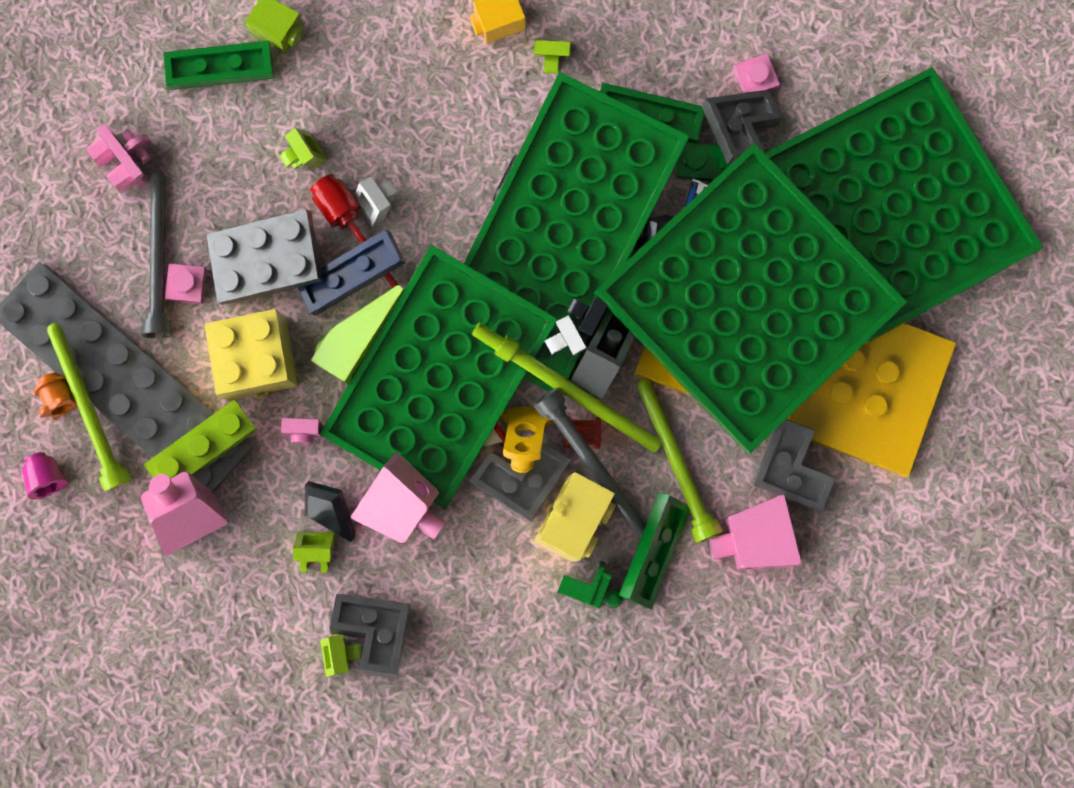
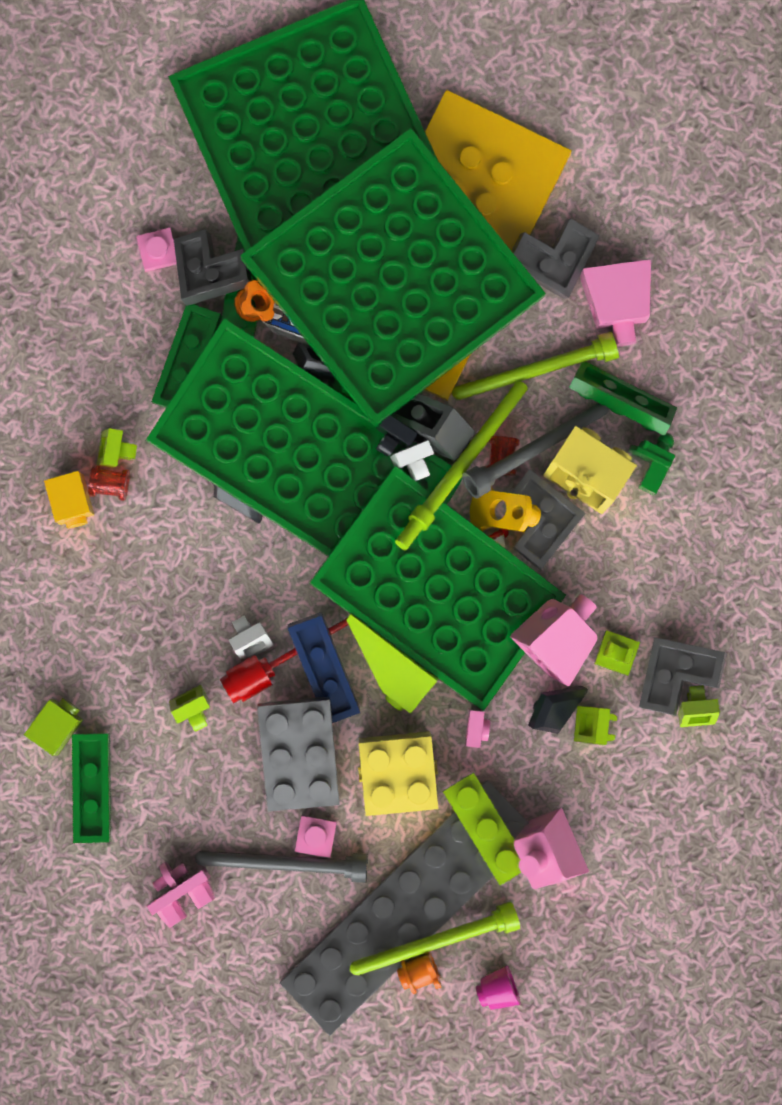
camera: 85 degrees left, 5 degrees up
(391, 567) = (616, 653): none -> lime tile
(518, 51) = (109, 483): none -> clear red bush
(703, 158) = (263, 301): none -> orange brick

